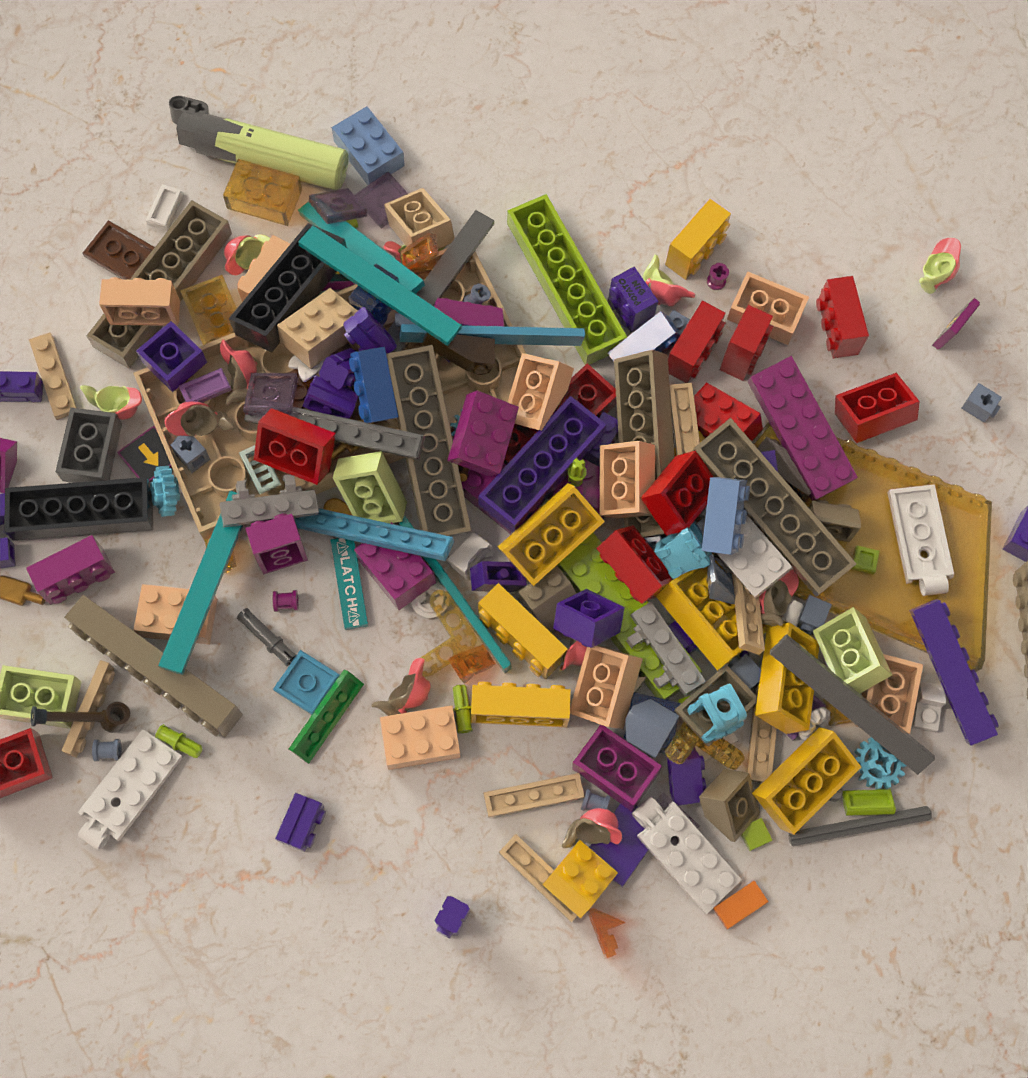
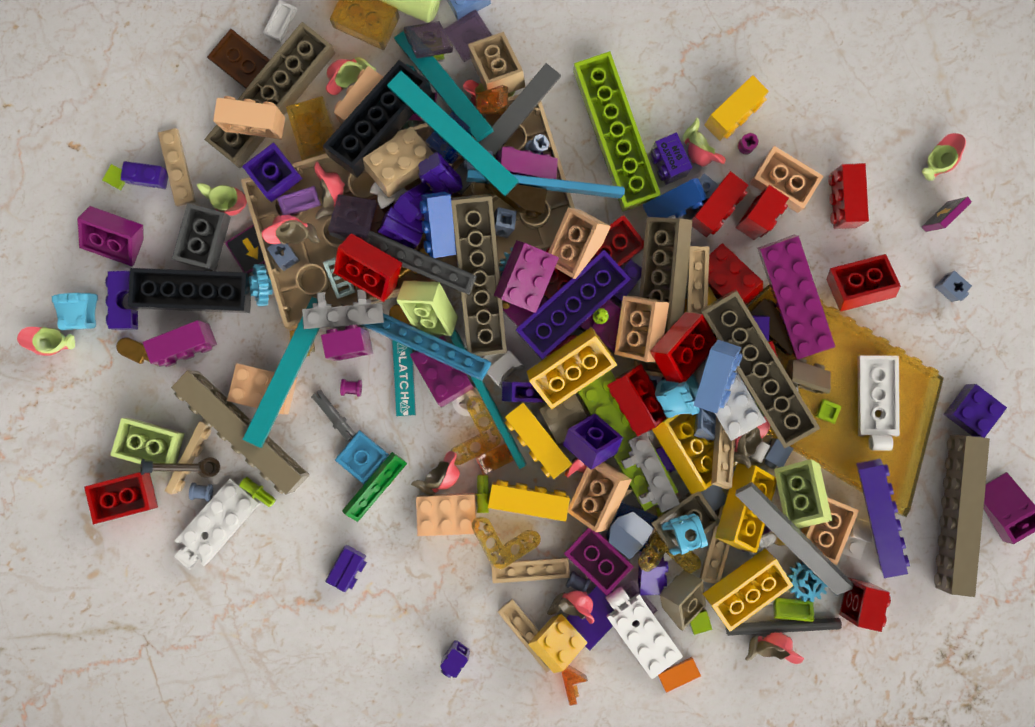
camera: 15 degrees right, 15 degrees up
(452, 388) = (504, 225): none -> sand blue brick
(497, 771) = (504, 550): none -> clear yellow beam
(854, 850) = (773, 645): none -> hair
(953, 776) = (865, 605): none -> red brick

